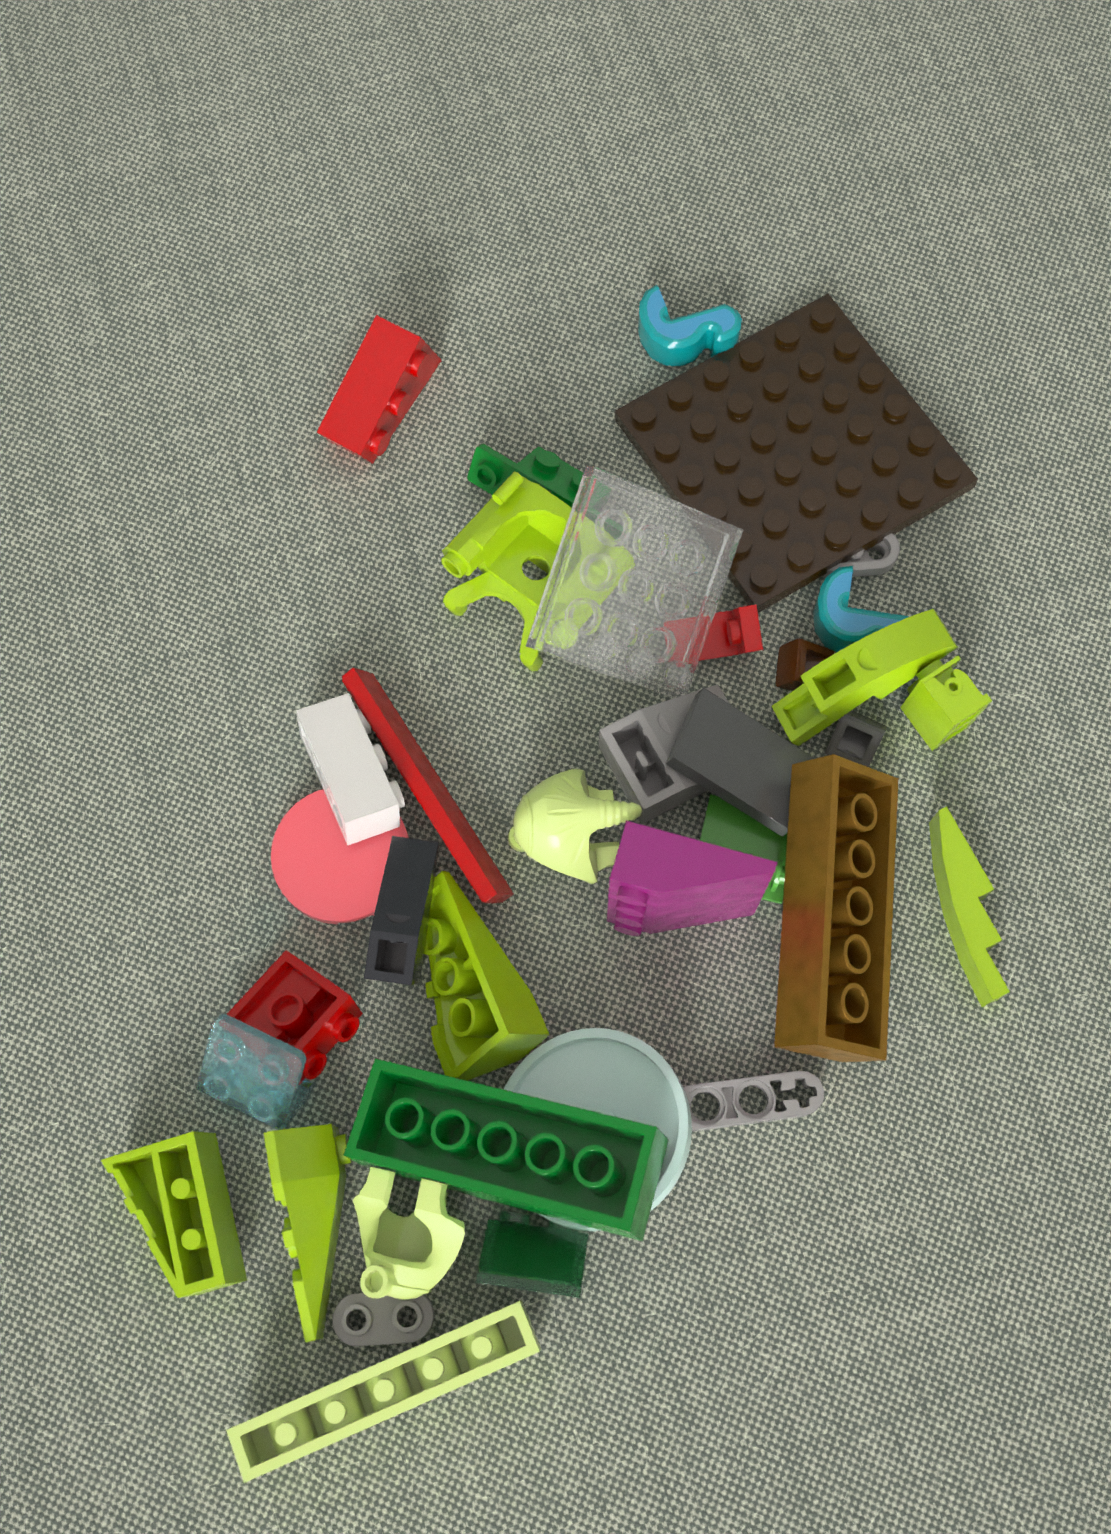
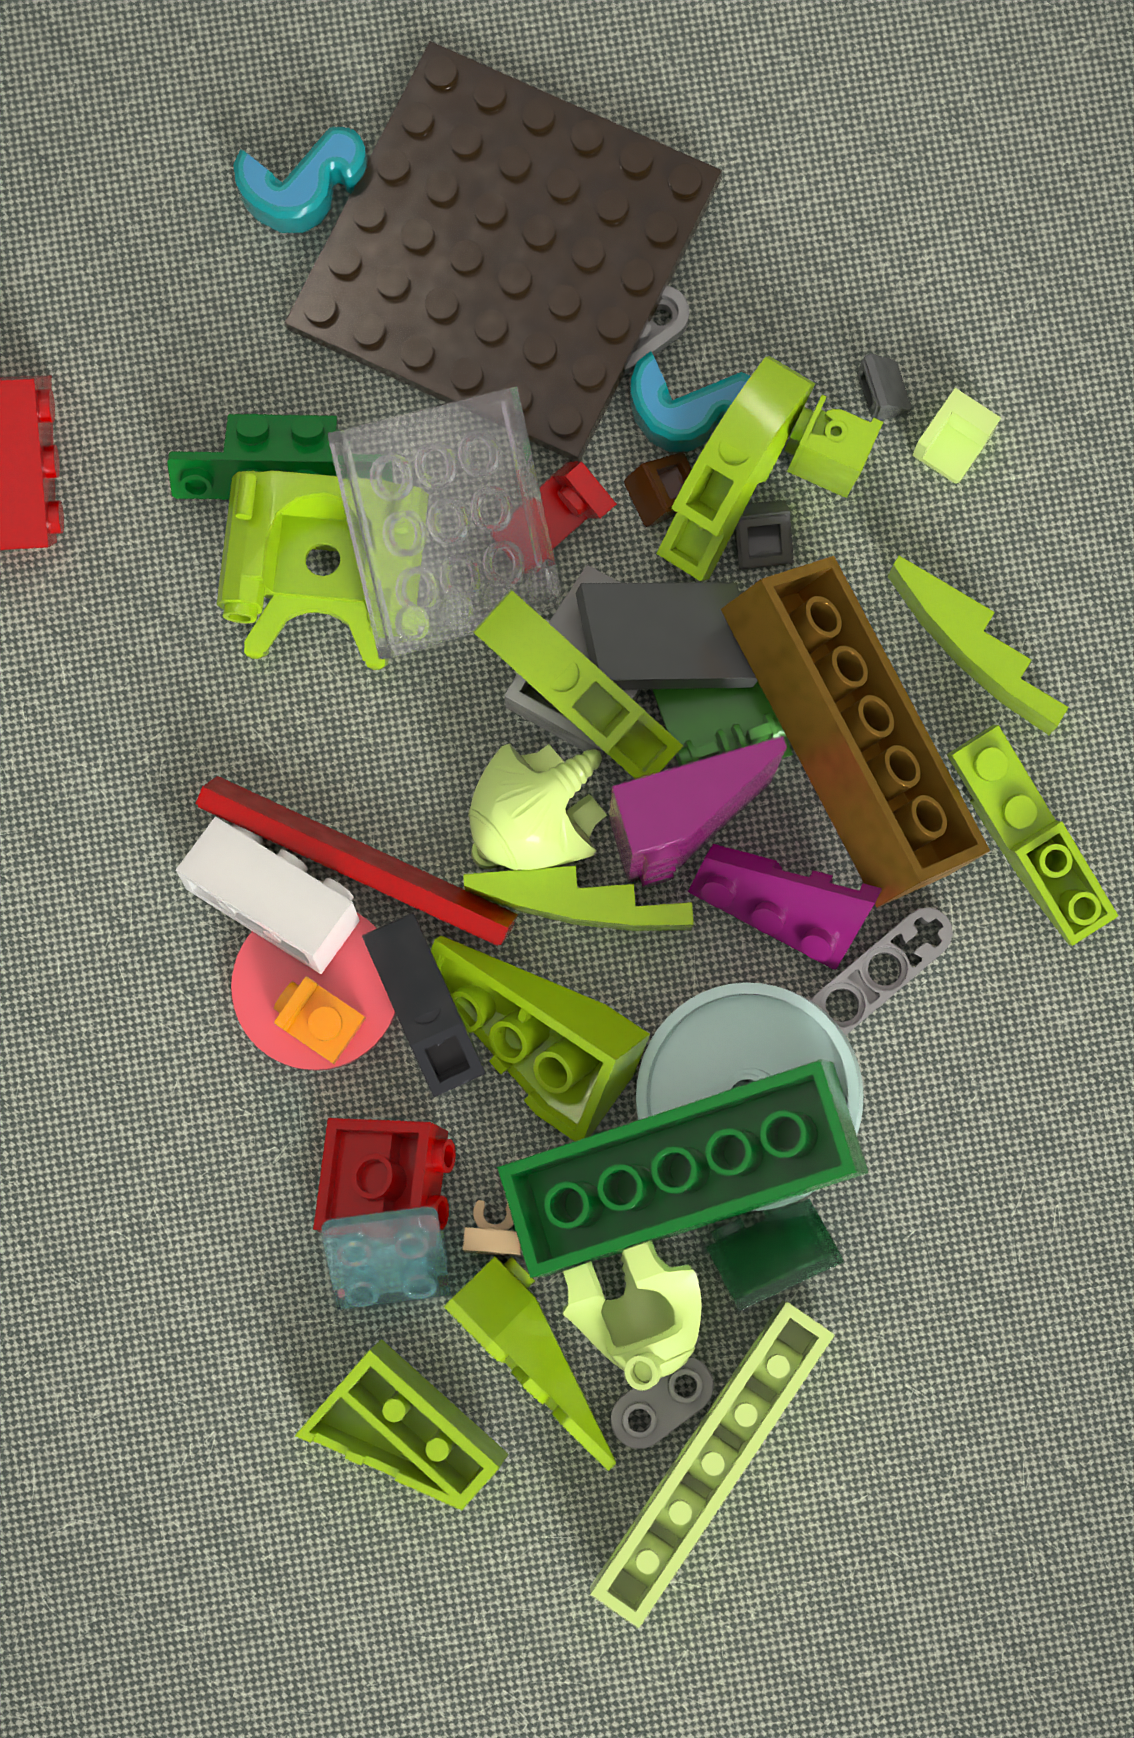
camera: 35 degrees left, 10 degrees up
(323, 873) = (317, 1018): none -> light orange bracket
(338, 1109) = (491, 1238): none -> tan tile
(550, 896) = (555, 896): none -> lime slope
(651, 747) = (577, 687): none -> lime slope
(714, 1013) = (790, 907): none -> magenta wing
(923, 1072) = (1031, 837): none -> lime slope
(1006, 689) = (883, 387): none -> dark grey slope
(1039, 752) = (956, 436): none -> yellowish green panel

